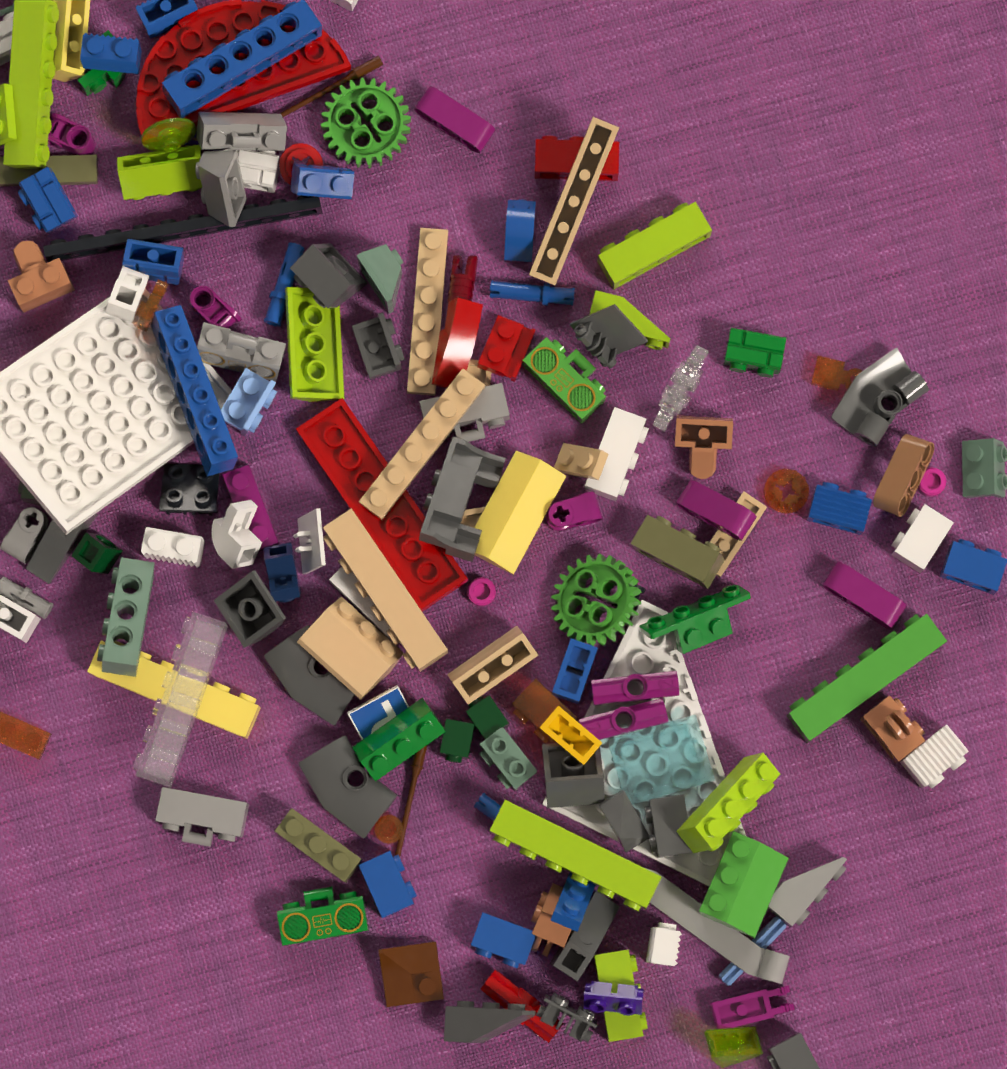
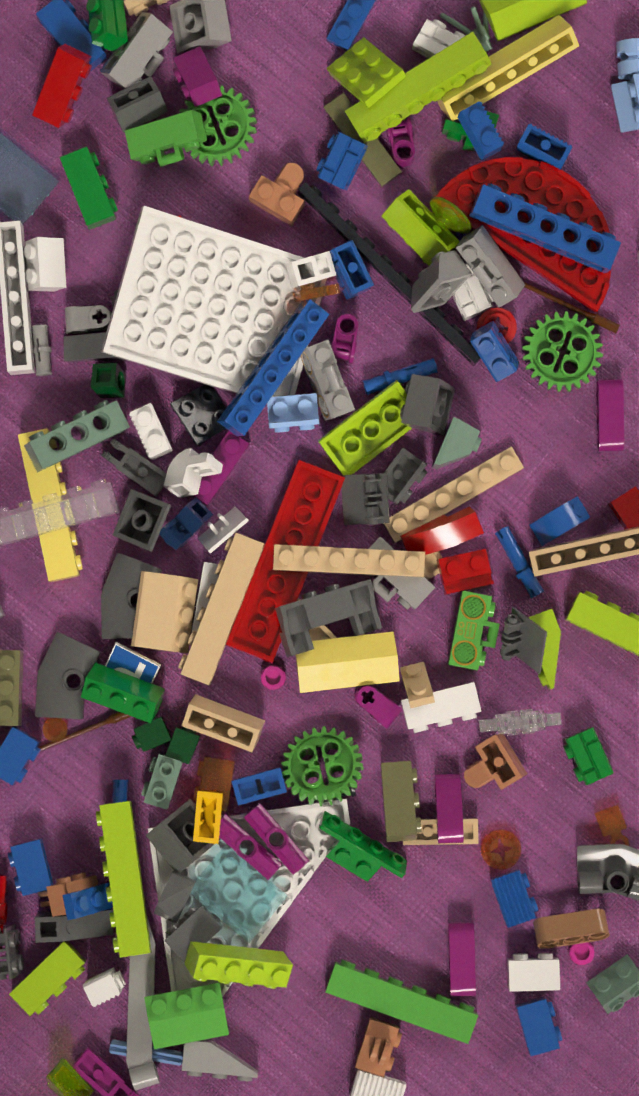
camera: 55 degrees right, 5 degrees up
(198, 583) = (137, 468): none -> dark grey hinge
(375, 392) = (365, 499): none -> dark grey hinge
(462, 284) = (488, 506): dark red hinge -> none
(626, 1000) = (44, 987): dark purple hinge -> none

